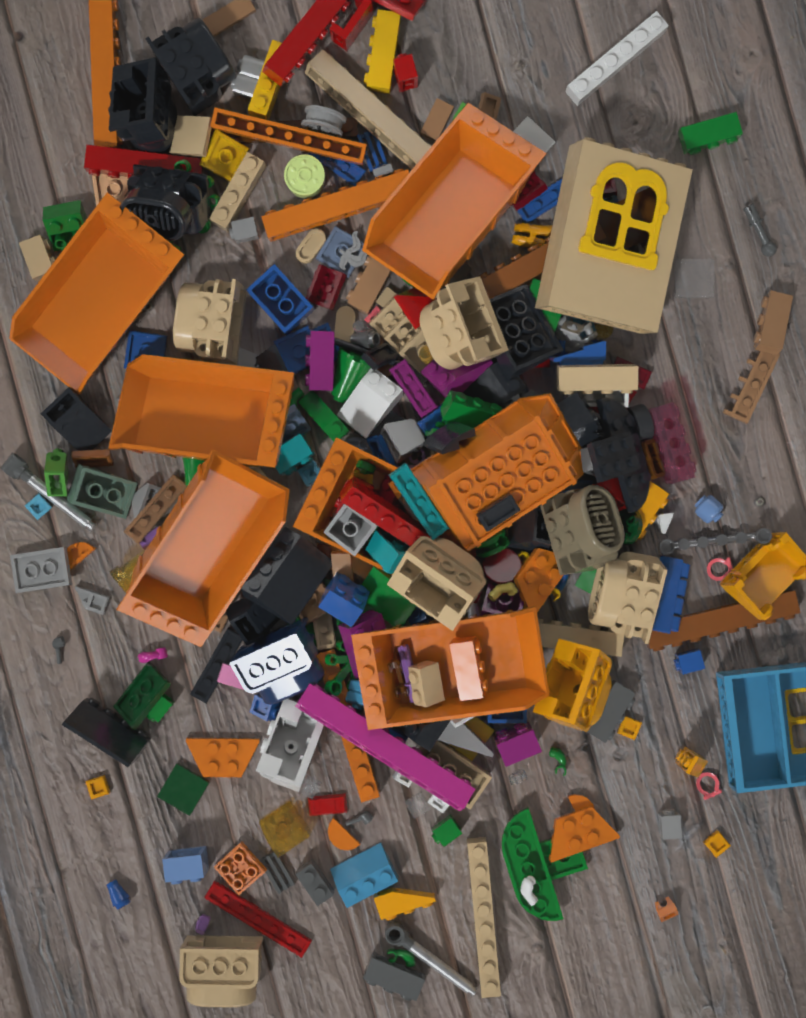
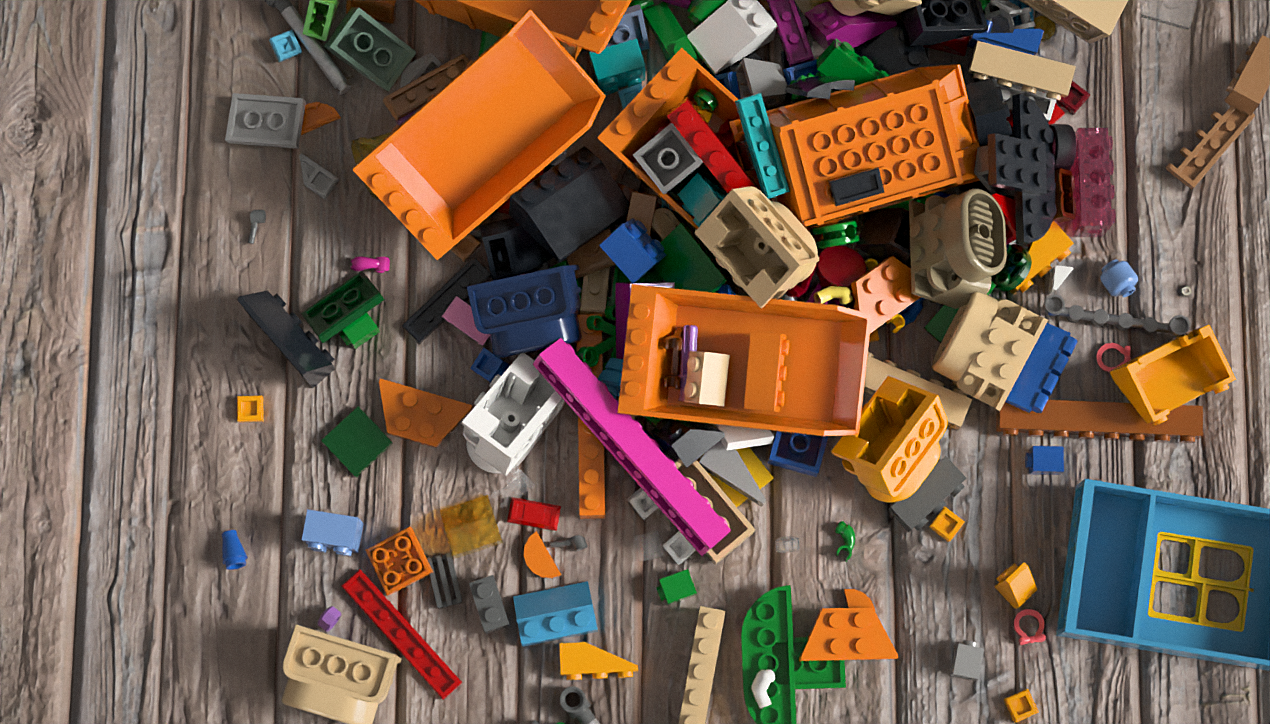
camera: 15 degrees right, 10 degrees down
(517, 743) = (799, 493): magenta brick -> none

